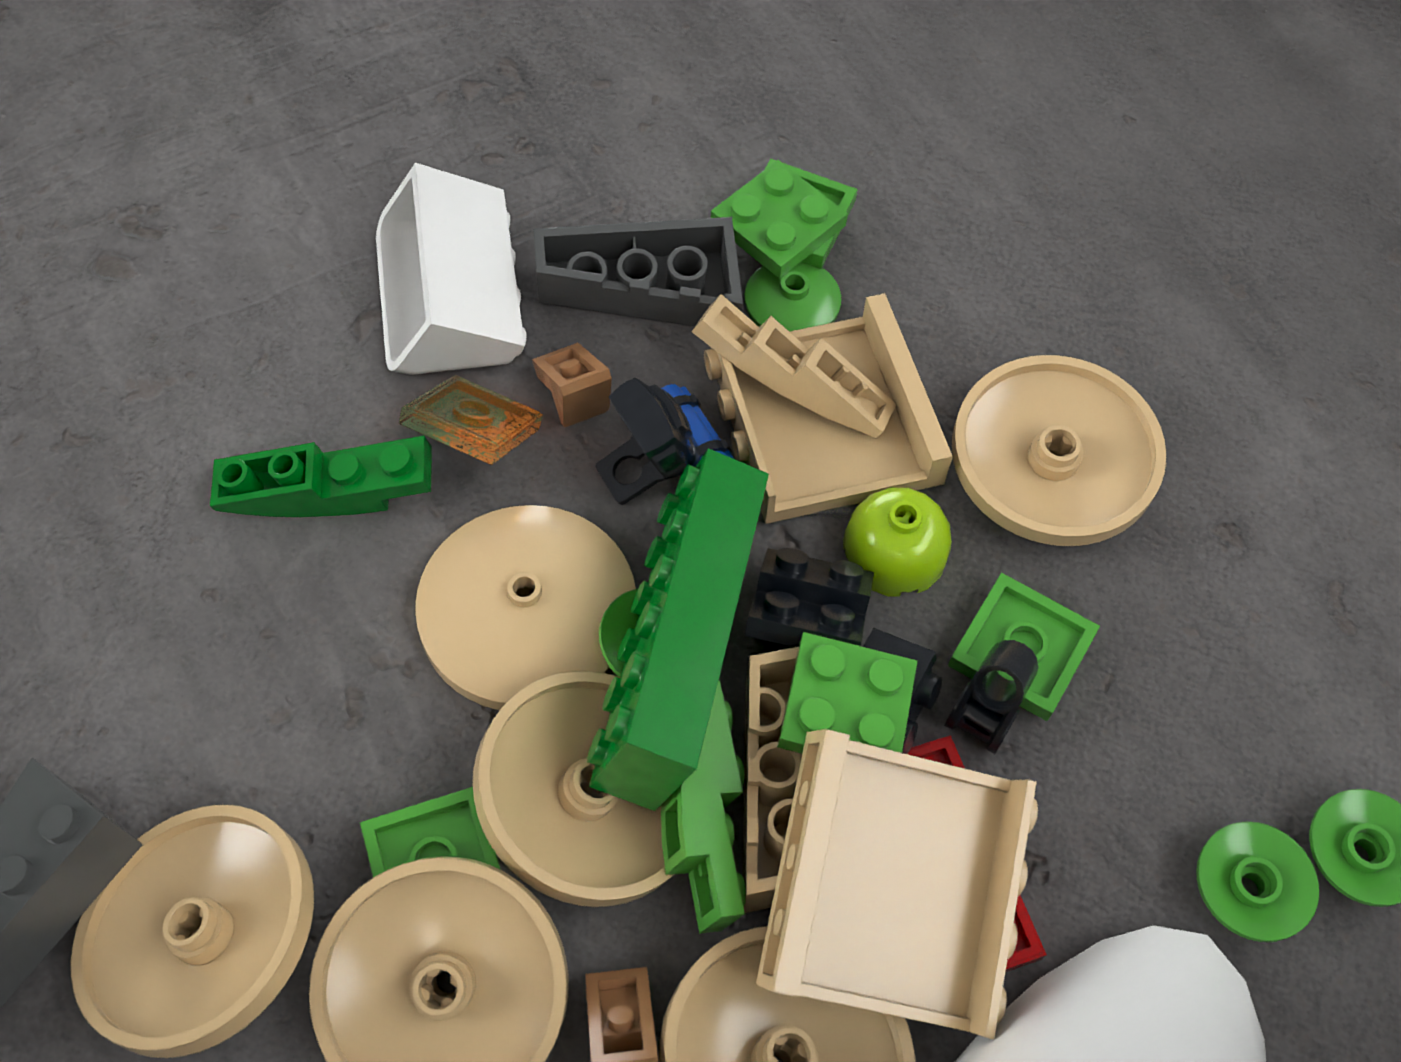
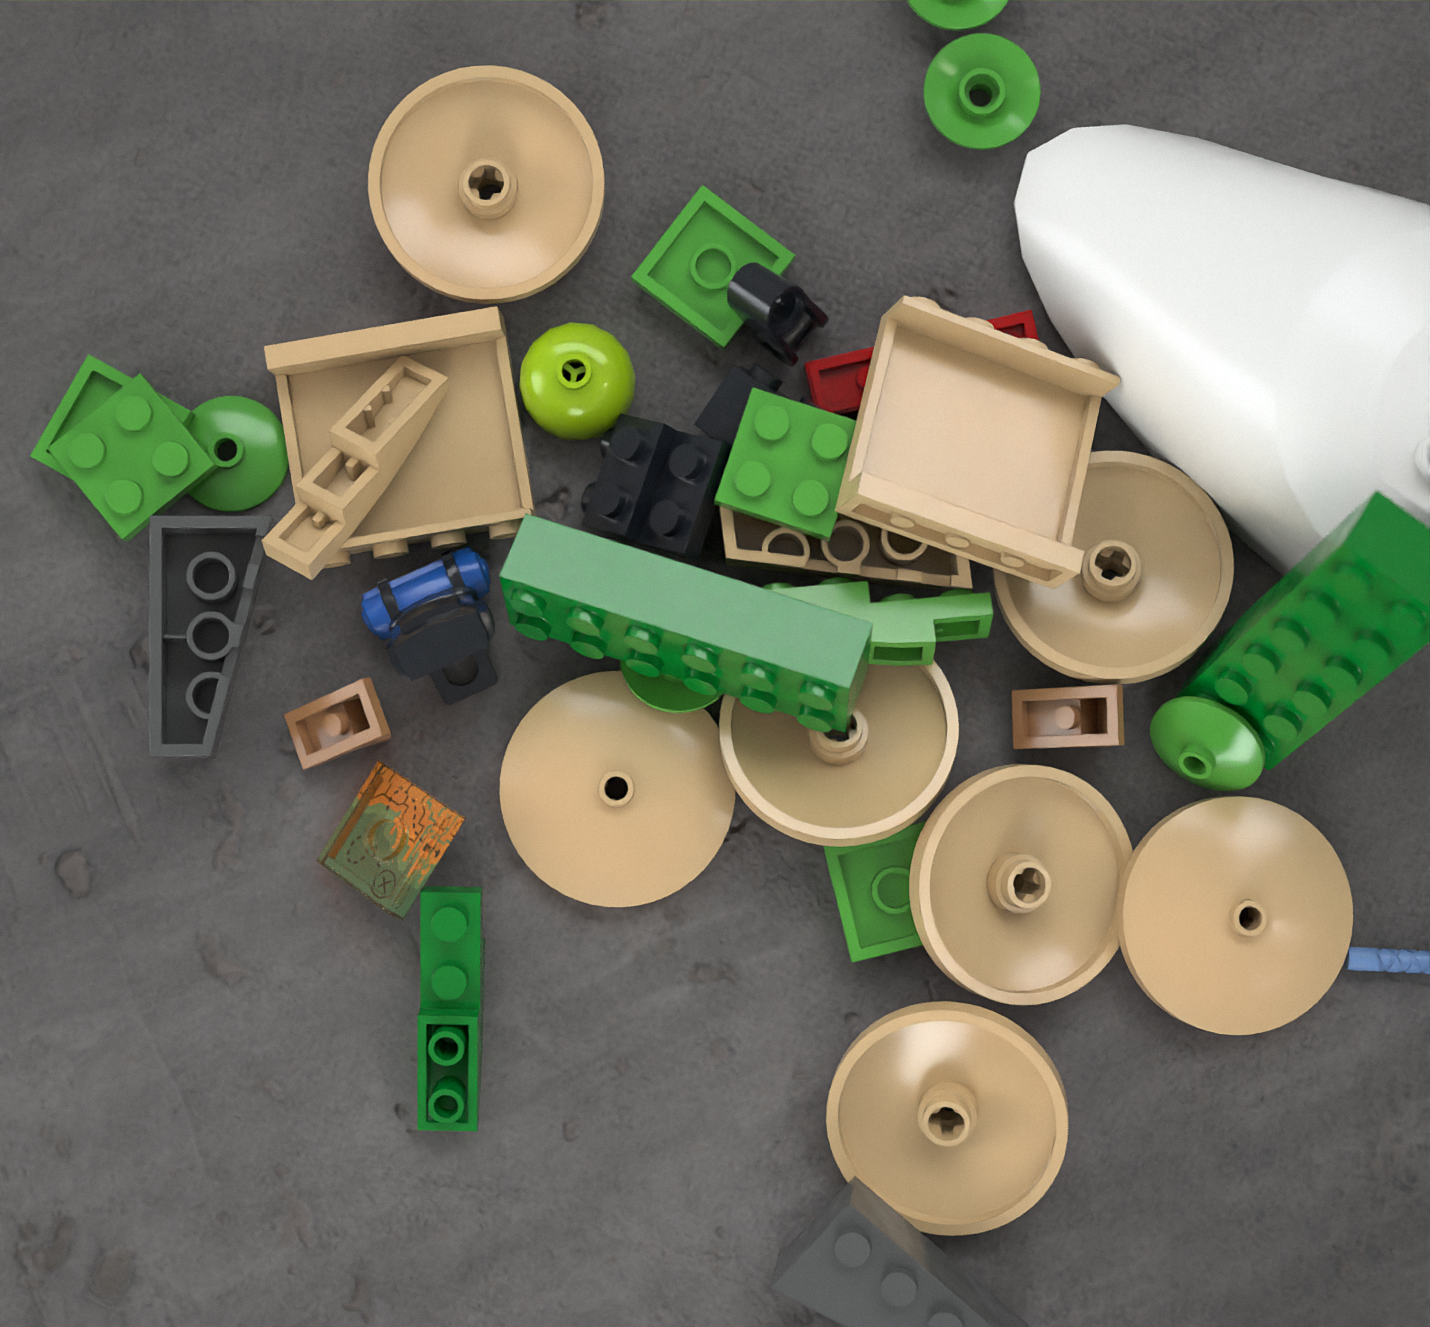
camera: 80 degrees left, 25 degrees up
(447, 275) = (182, 864): white windscreen -> none

